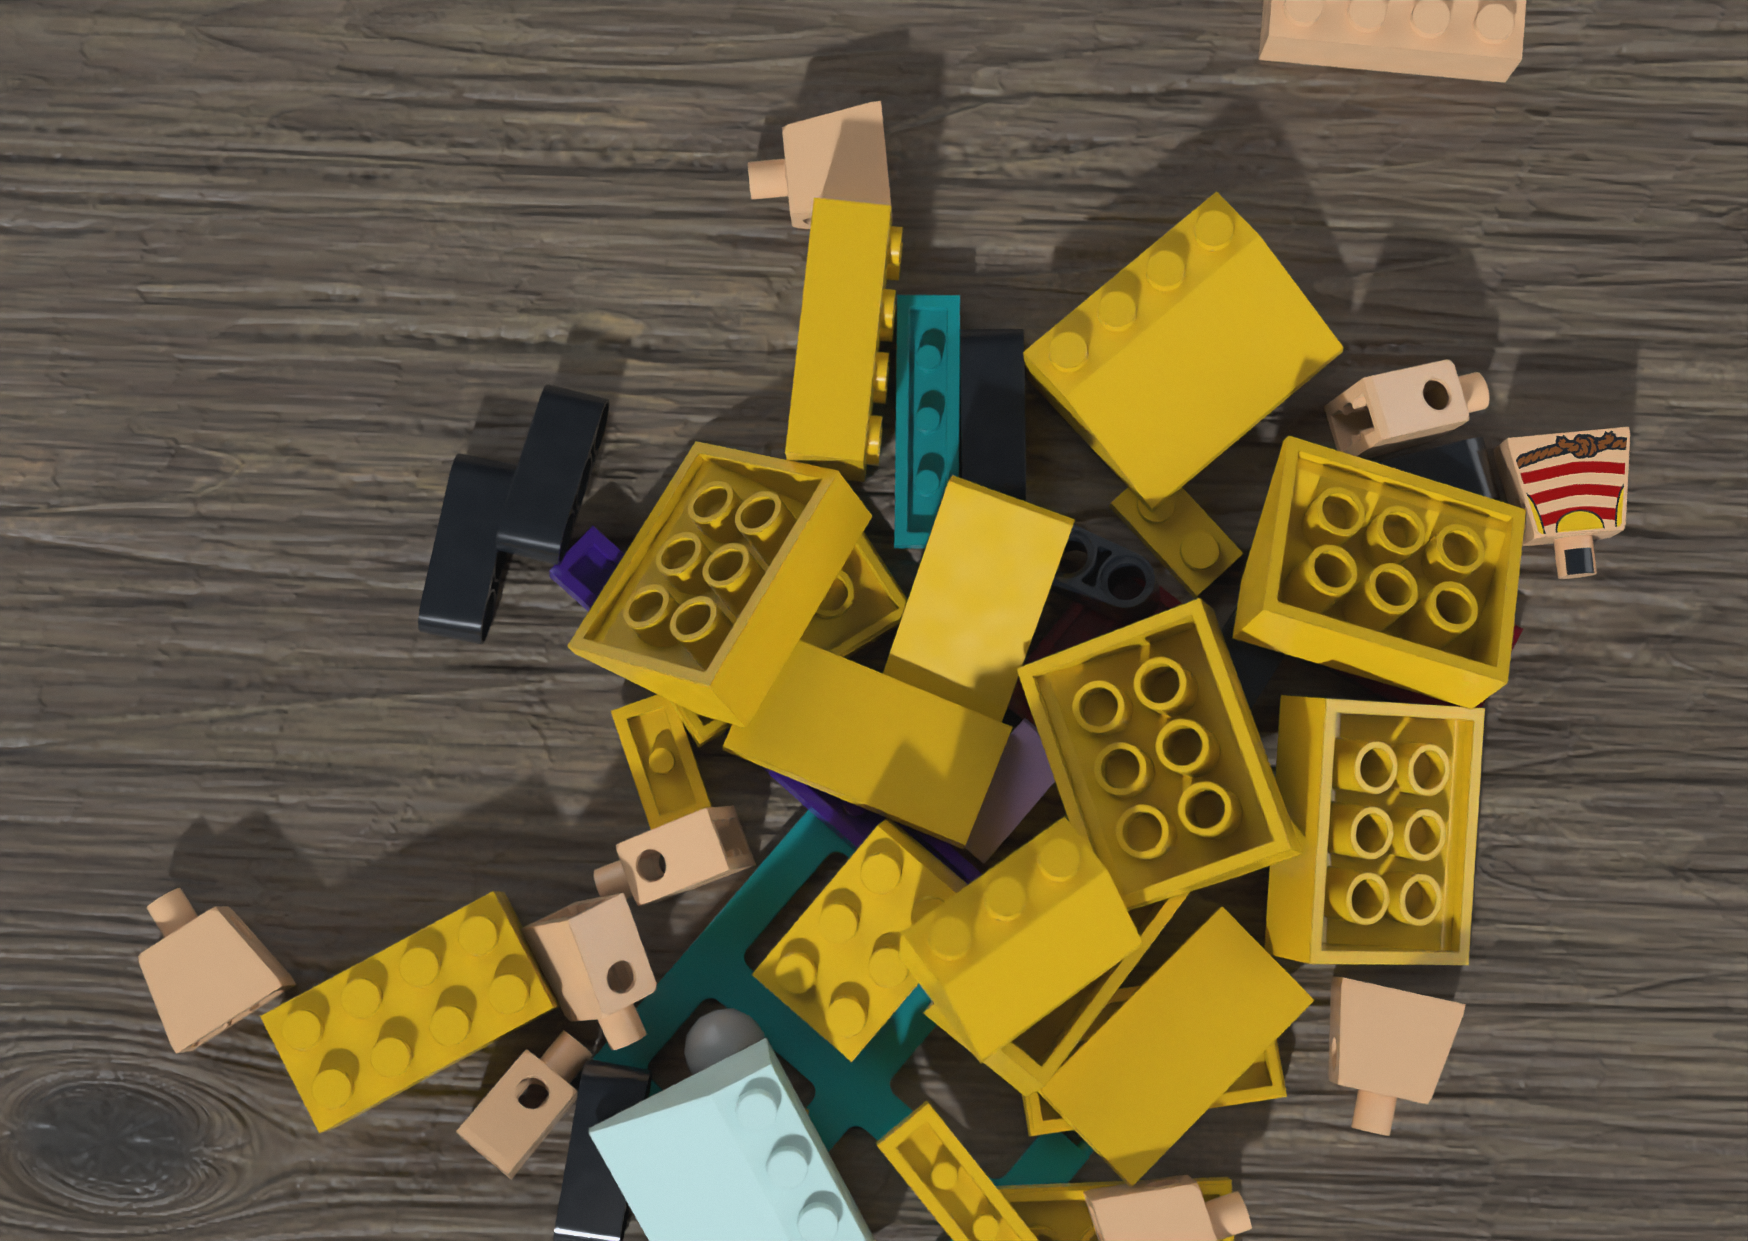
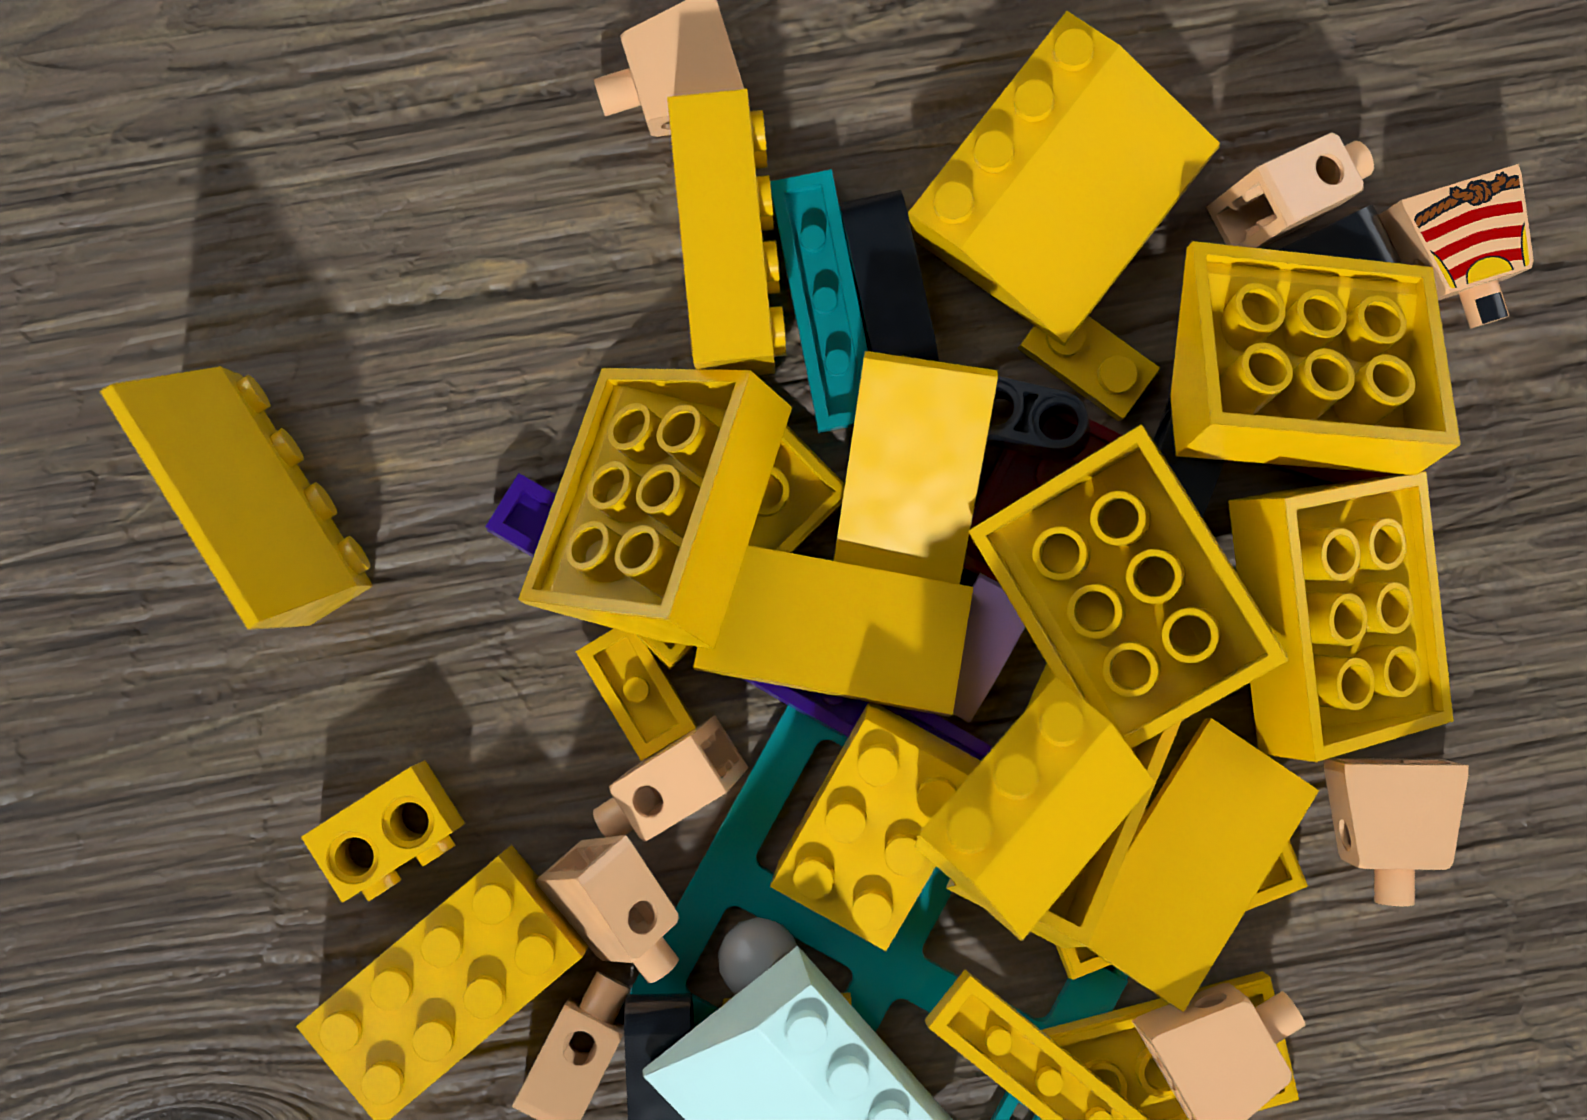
camera: 15 degrees left, 5 degrees up
(206, 971) = (237, 985): light nougat torso -> none
(329, 491) = (242, 494): none -> yellow slope
(381, 835) = (380, 823): none -> yellow brick
(464, 558) = (403, 520): black beam -> none
(552, 474) = (467, 431): black beam -> none

